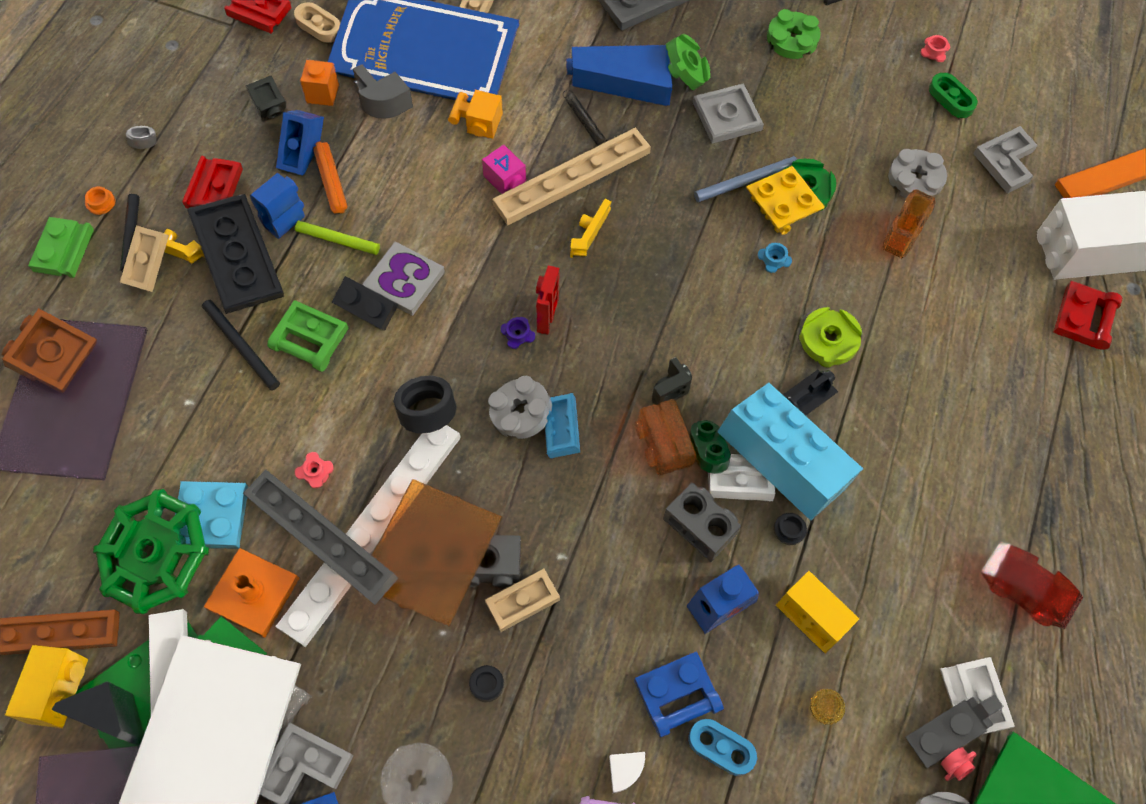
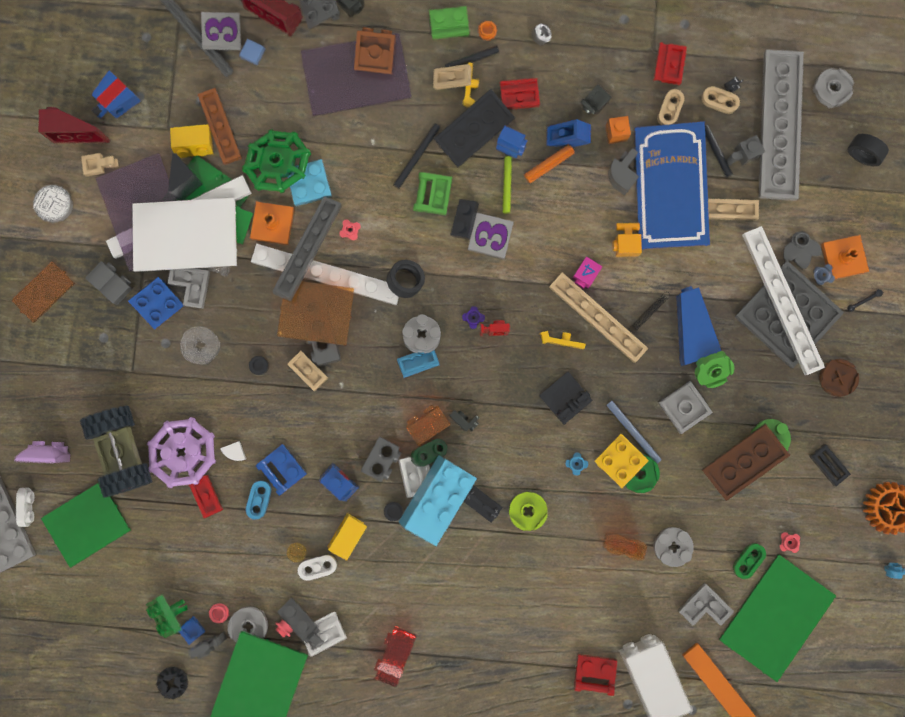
camera: 75 degrees right, 20 degrees up
(675, 245) = (566, 398): none -> black hinge
(821, 61) = (745, 462): none -> reddish brown plate
(860, 677) = (318, 567): none -> white plate
(1033, 90) = (777, 617): none -> green piece

